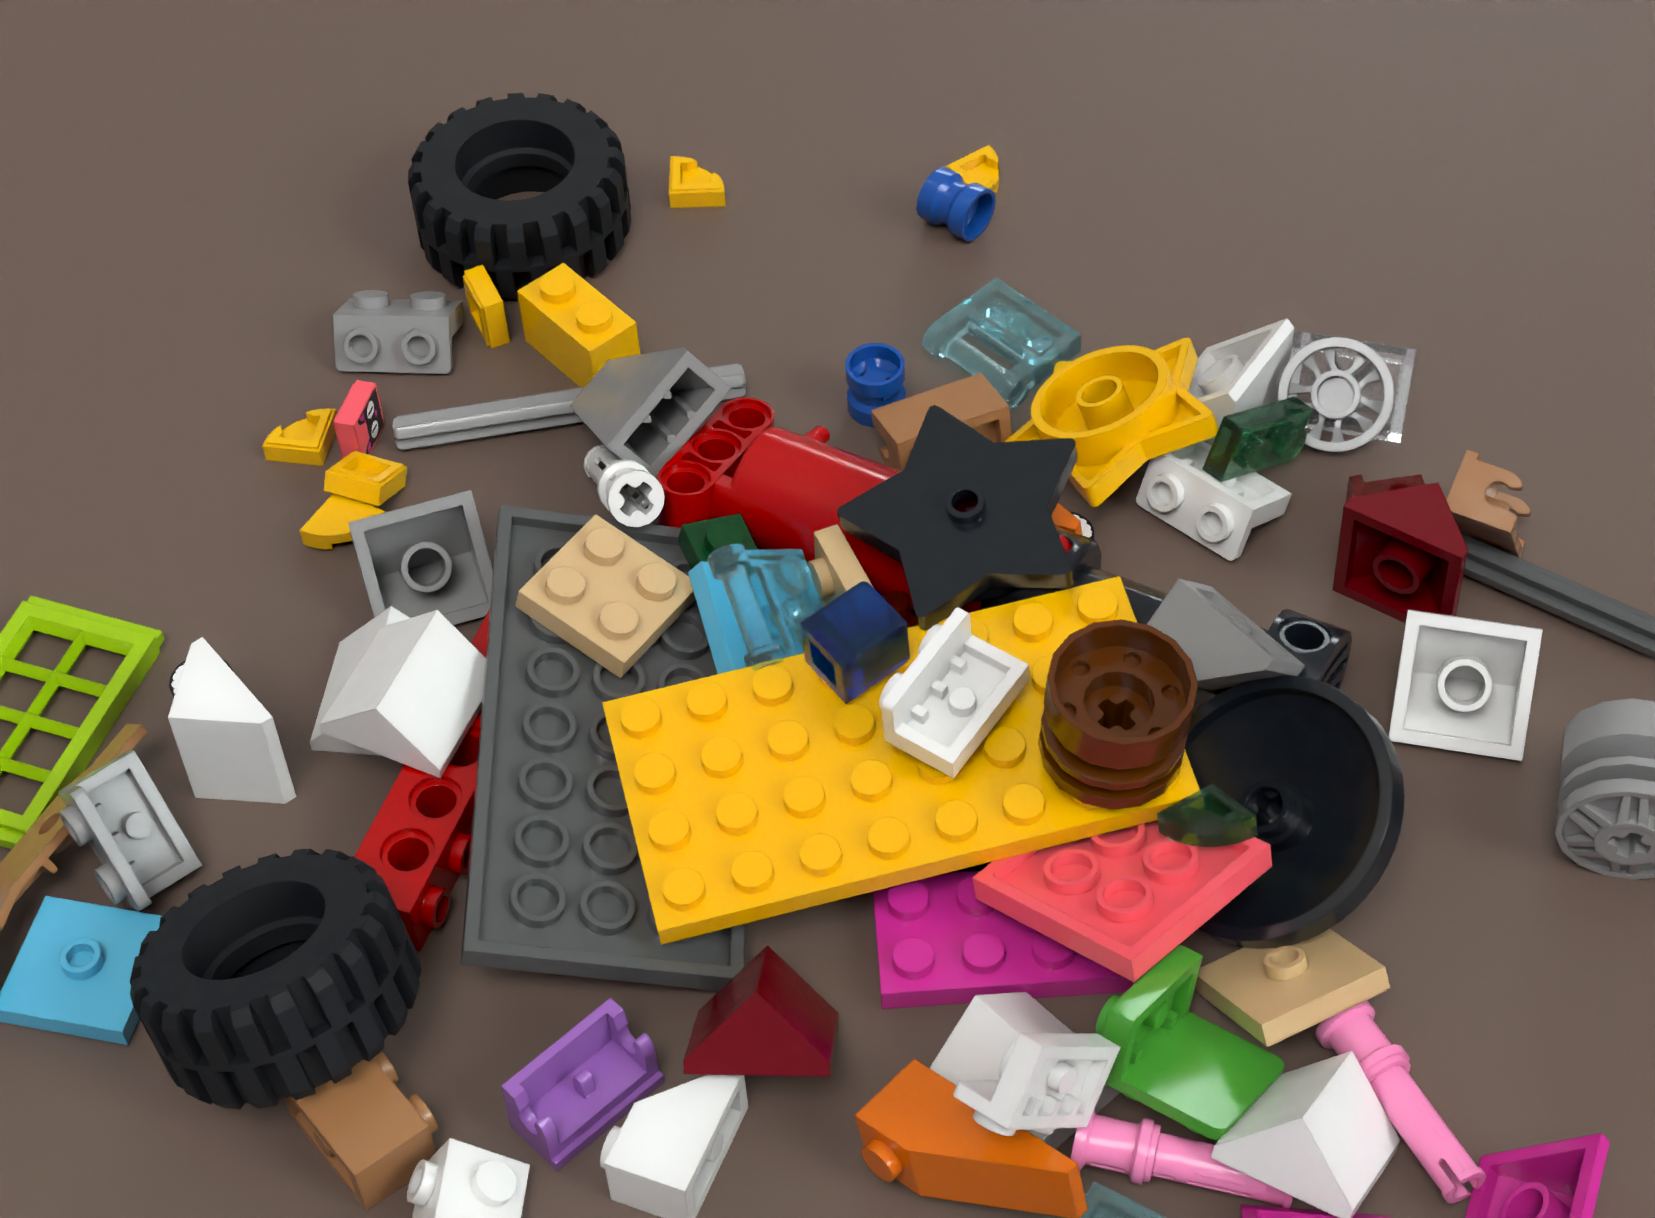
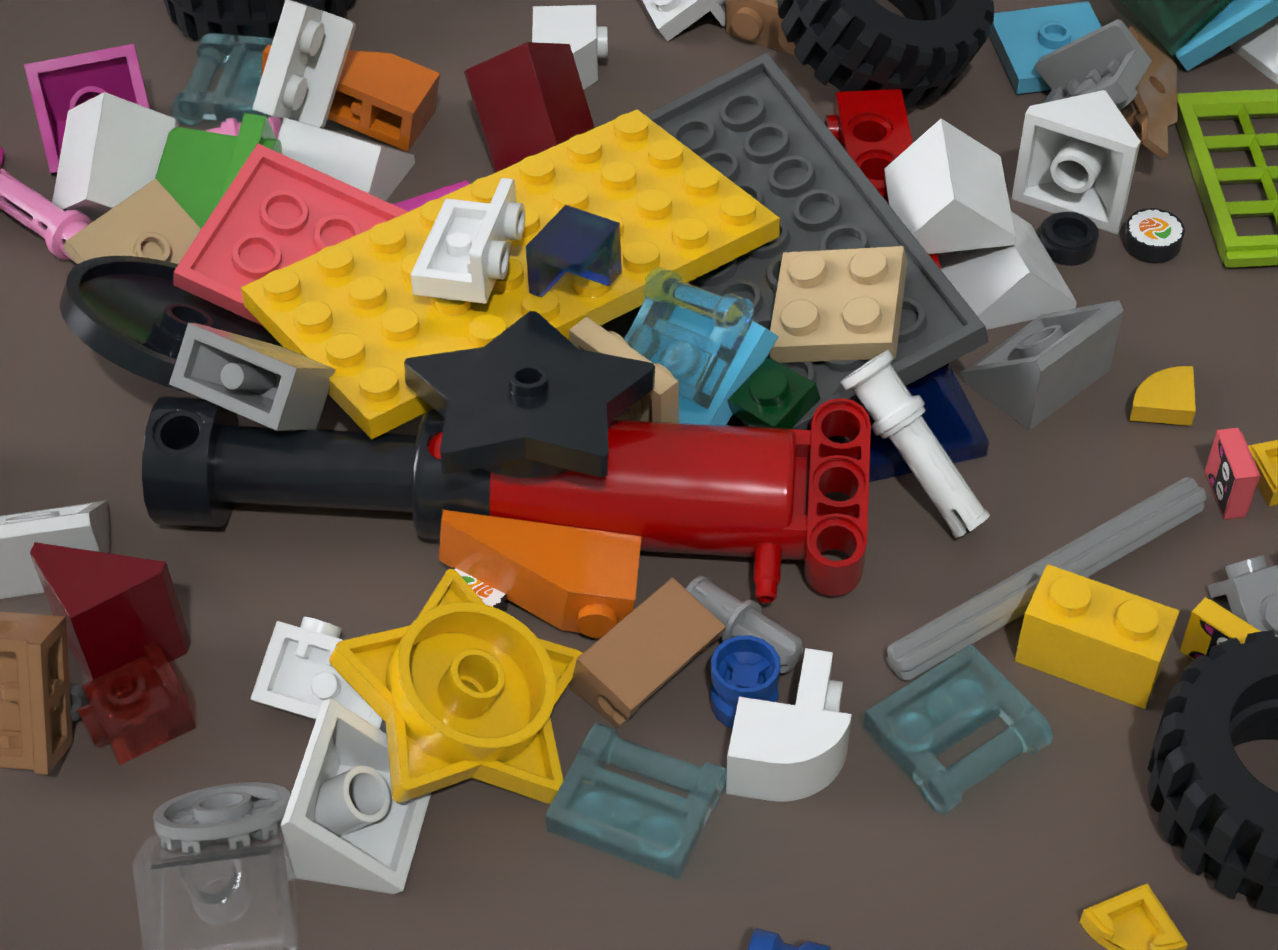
camera: 155 degrees right, 0 degrees up
(293, 712) = (1069, 238): none -> black tile
(365, 478) = (1178, 429): yellow tile -> none
(581, 1085) = (653, 70): medium lavender hinge -> none
(649, 404) = (945, 509): light grey slope -> none
(731, 320) = (945, 709): none -> clear light blue plate
(844, 424) = (746, 619): none -> light grey axle
(855, 320) = (790, 749): none -> white brick
(1117, 713) = (312, 233): reddish brown wheel -> none
(1207, 820) = (227, 277): clear green tile -> none
(1258, 439) = (282, 737): clear green plate -> none

